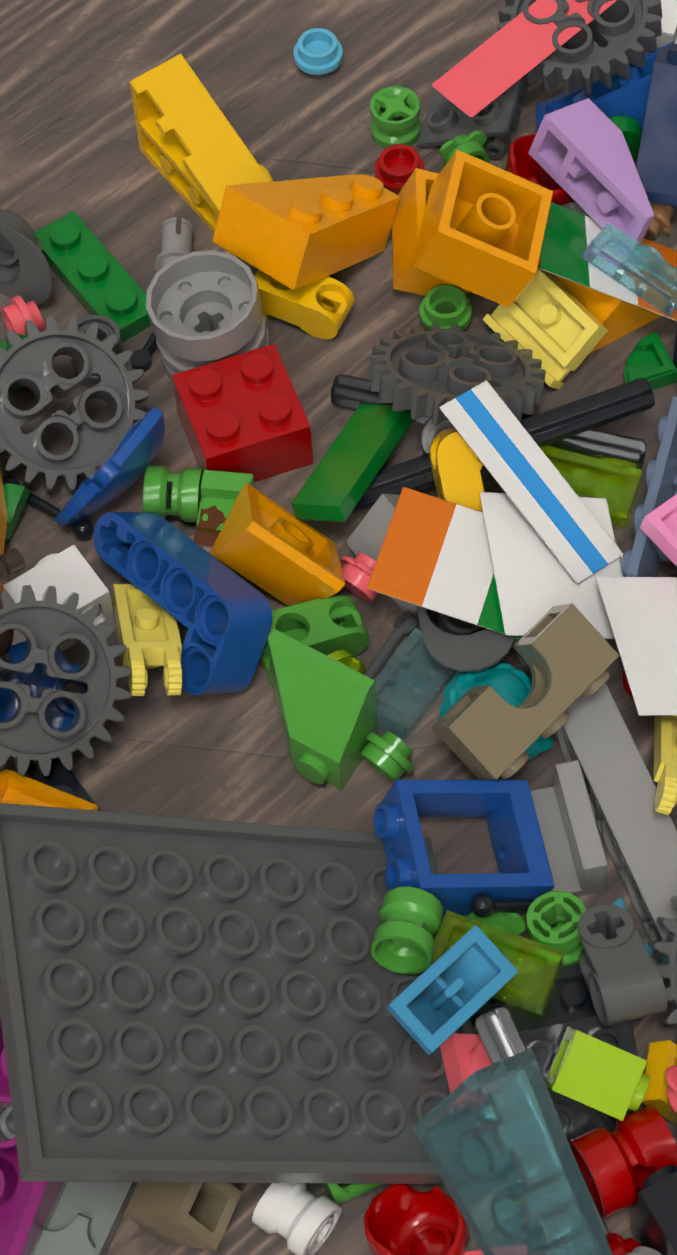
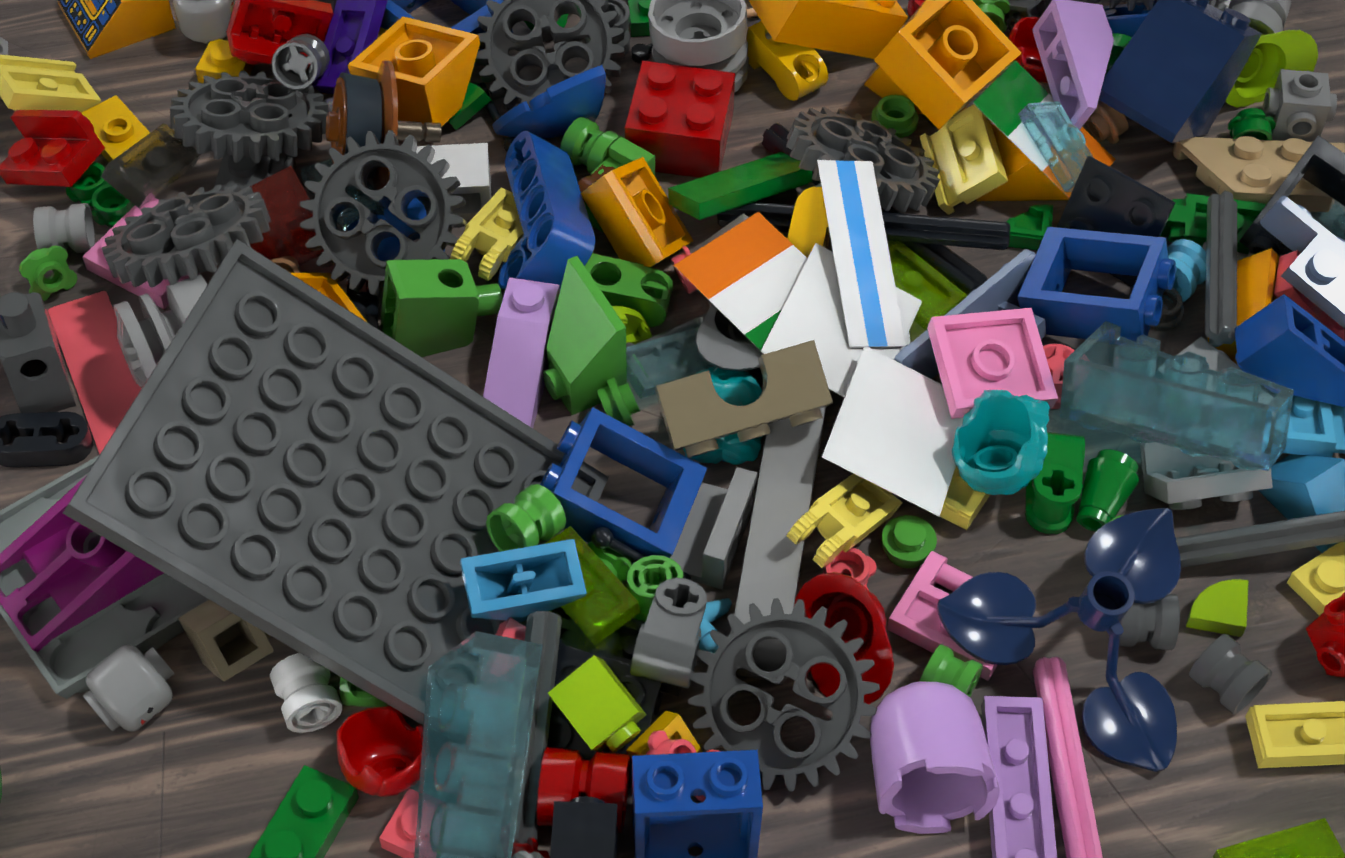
camera: 25 degrees right, 5 degrees down
(141, 750) = (434, 304): none -> bright green torso
(258, 749) = (520, 349): none -> lavender slope

